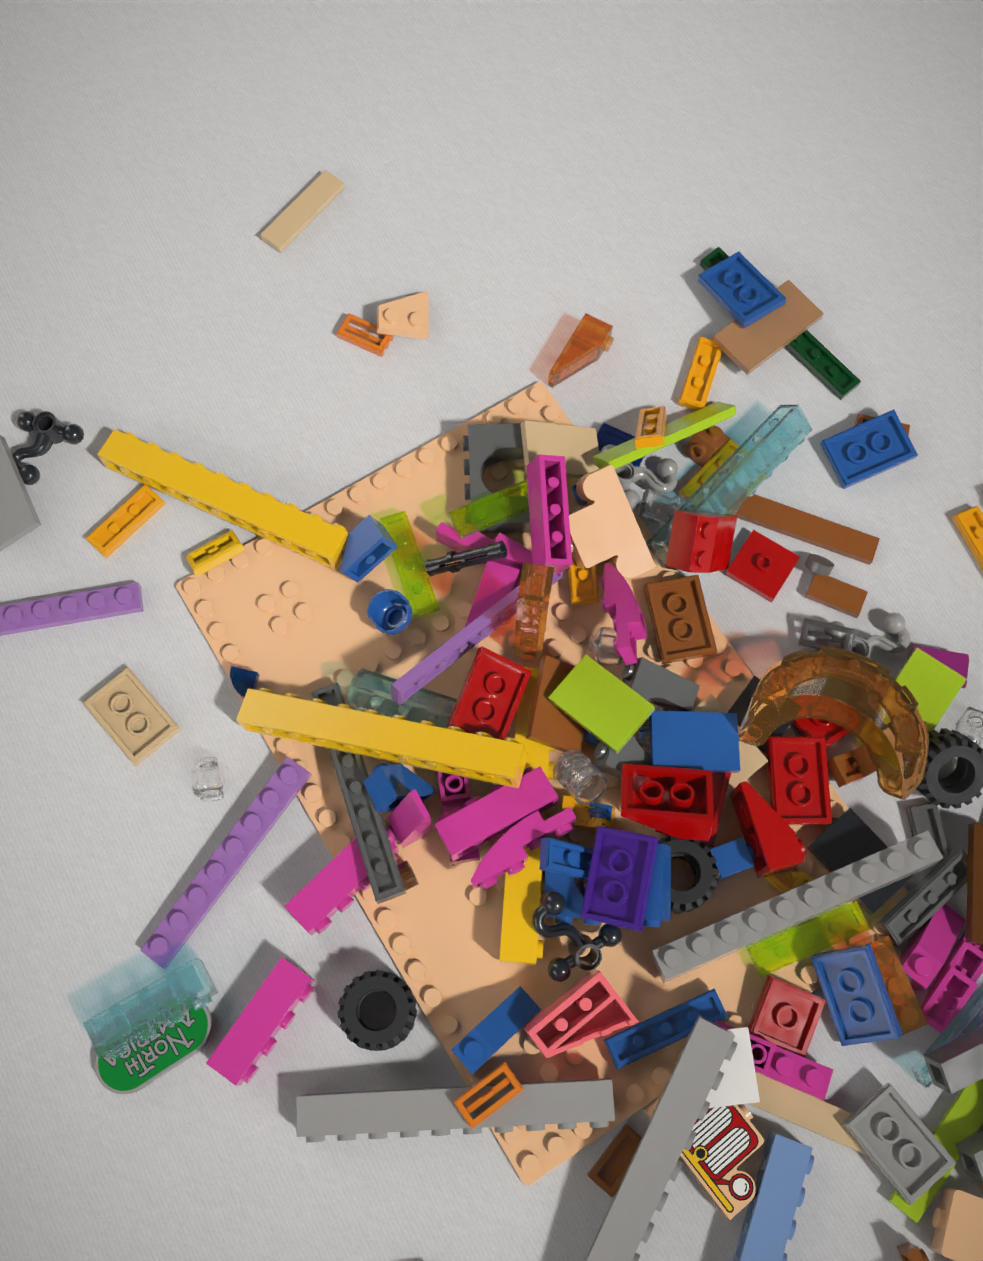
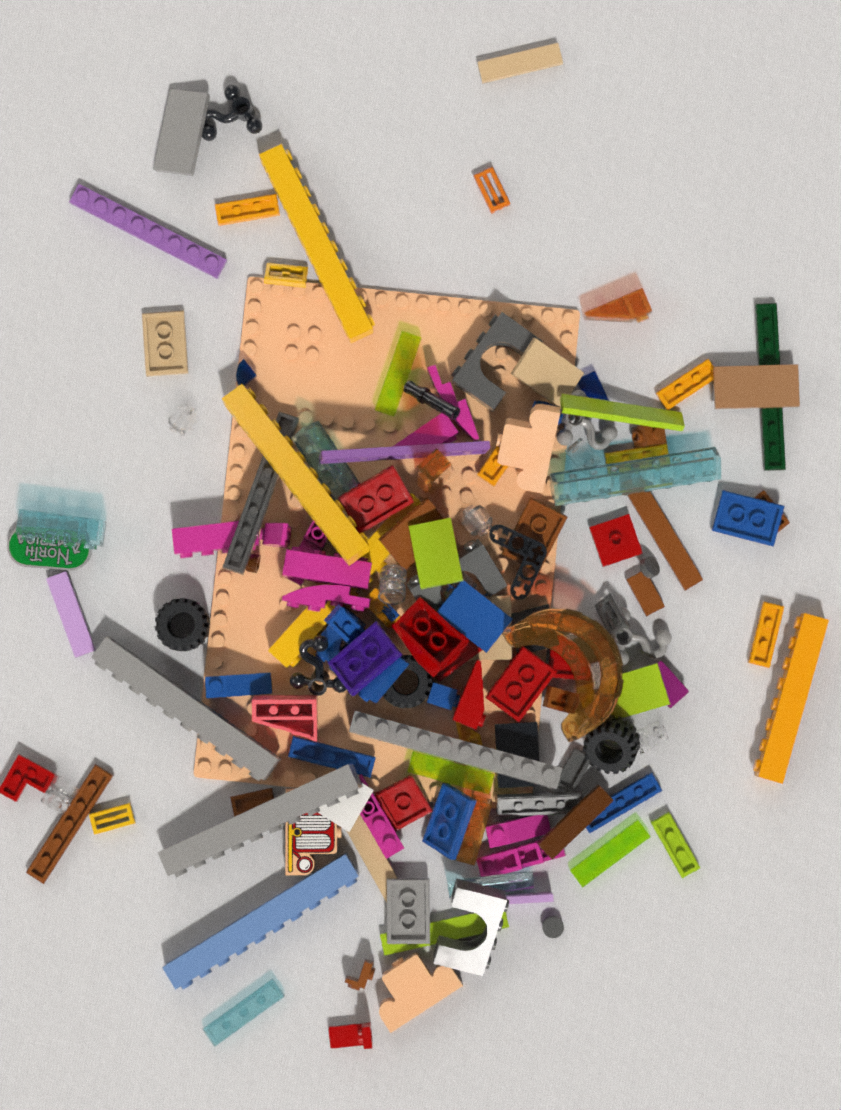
camera: 40 degrees right, 15 degrees up
(225, 863) = (160, 475): medium lavender plate -> none
(236, 1105) = (71, 614): none -> lavender tile
(260, 1022) = (115, 581): dark pink brick -> none
(366, 548) = (378, 345): blue slope -> none
(390, 611) = (361, 398): blue hair -> none
(392, 783) = (283, 509): blue slope -> none
(405, 317) = (526, 198): light nougat wing -> none
(491, 509) = (481, 383): clear neon green tile -> none
(511, 1078) = (225, 715): orange tile -> none
(549, 512) = (498, 414): dark pink brick -> none
(624, 612) = (501, 504): dark pink slope -> none
(651, 427) = (616, 400): light orange tile -> none
(690, 639) = (525, 551): none -> black beam
(701, 541) = (581, 500): red slope -> none
(741, 289) = (760, 348): blue tile -> none

